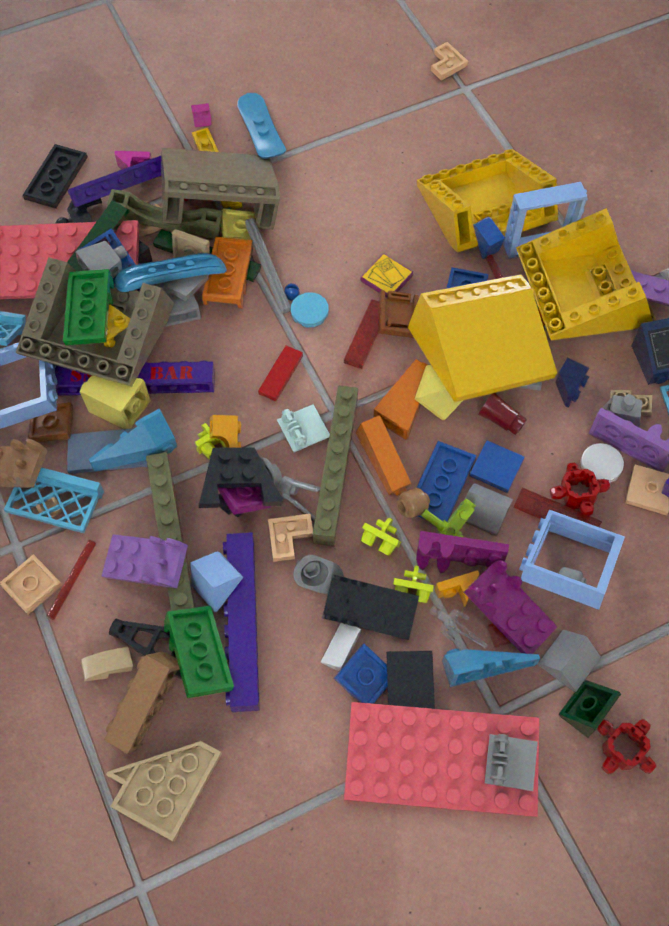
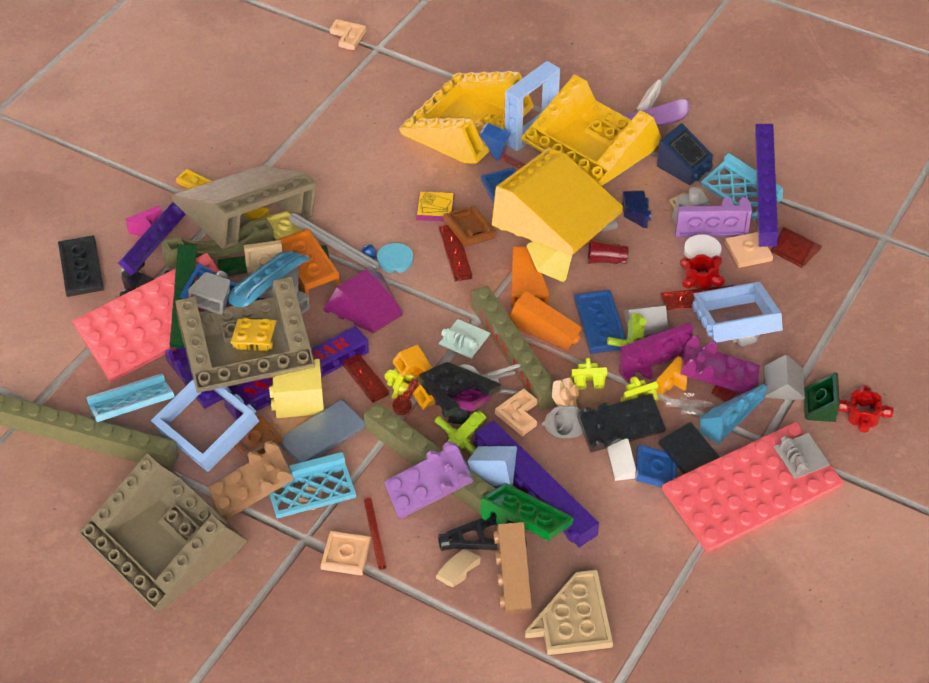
camera: 35 degrees left, 15 degrees down
(87, 307) = (235, 323): green hinge -> none
(148, 438) = (350, 411): dark azure wedge -> none
(188, 417) = (365, 378): none -> clear red tile
(194, 463) = (402, 403): none -> clear red plate
(201, 115) = (172, 161): dark pink slope -> none
(213, 530) = (462, 435): none -> lime piece
(249, 340) = (365, 301): none -> magenta wedge
(260, 126) = (234, 148): dark azure piece -> none
(280, 373) = (412, 311): red tile -> none
(338, 549) = (565, 392): none -> light nougat plate
(413, 503) = (595, 339): medium nougat head -> none
(496, 466) = (630, 290): blue tile -> none

